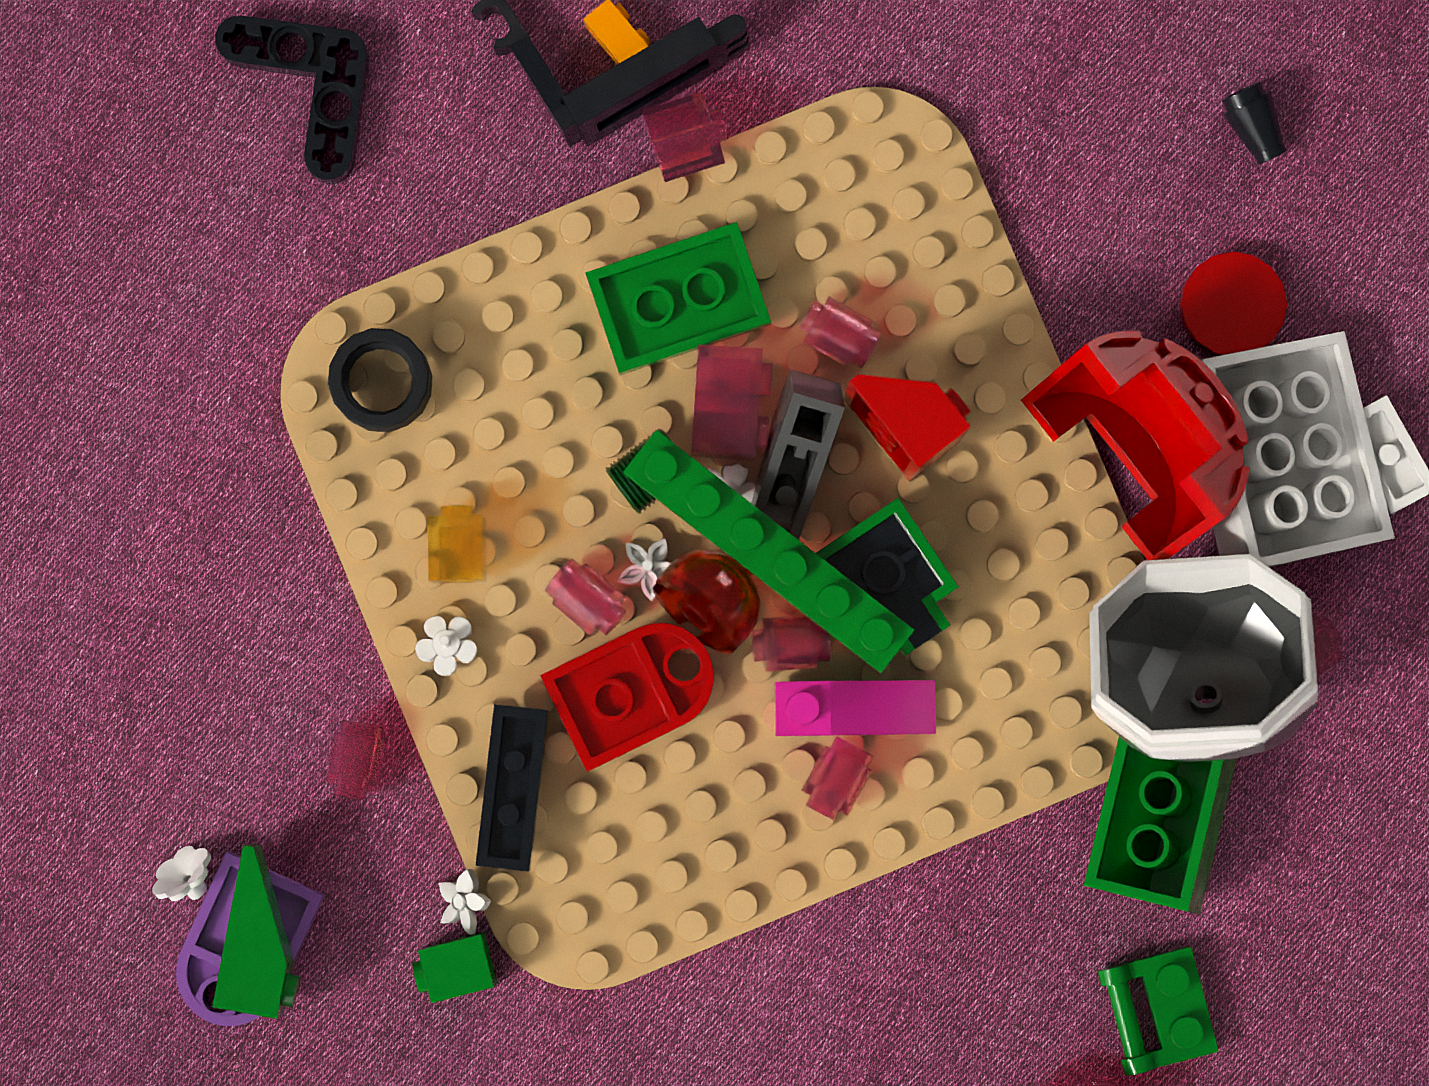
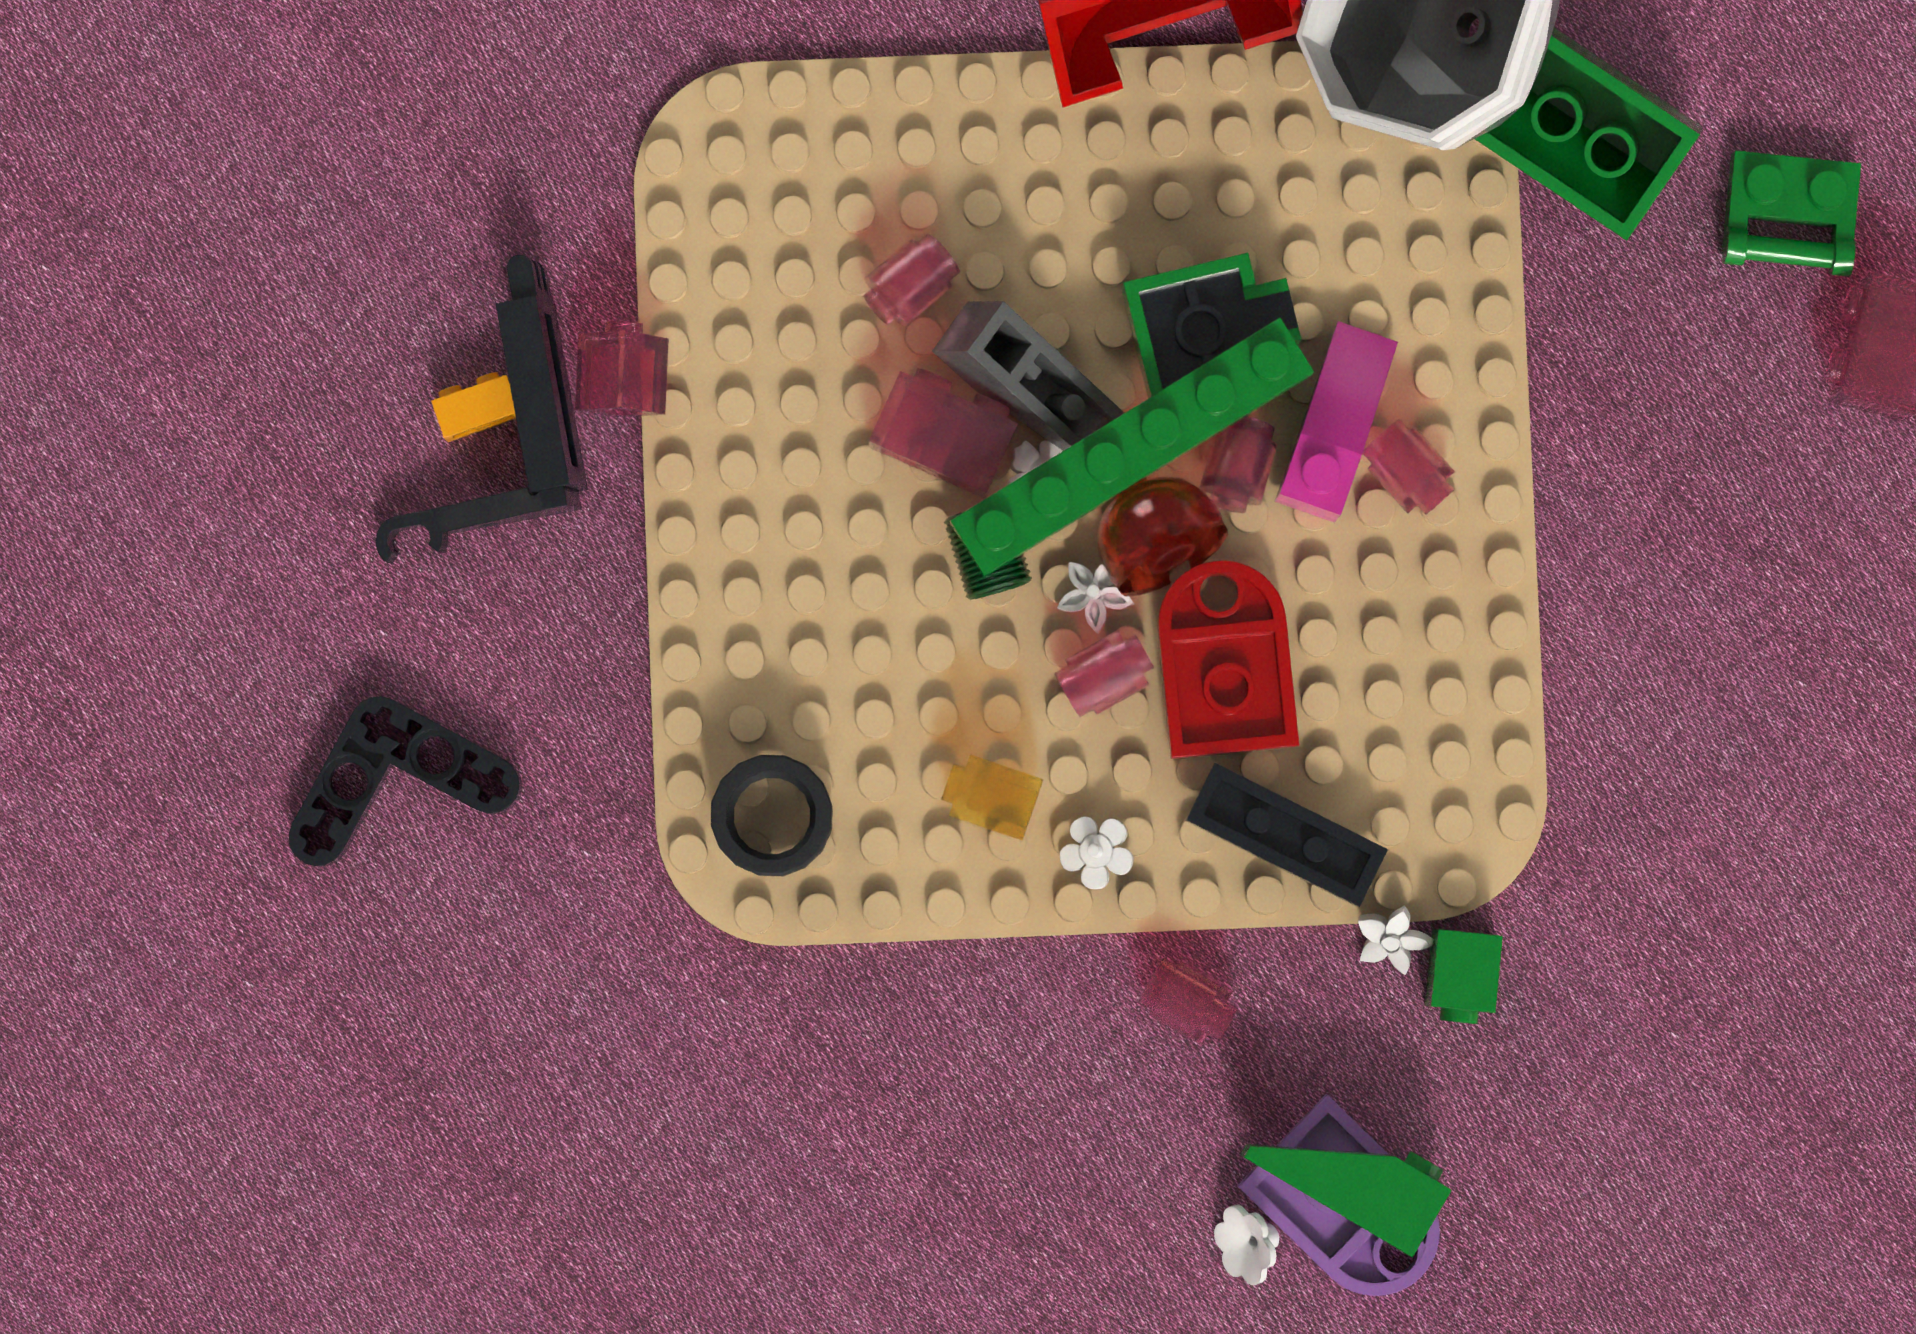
camera: 75 degrees left, 0 degrees up
(678, 298) = (804, 447): green plate -> none
(908, 419) = (1048, 234): red slope -> none

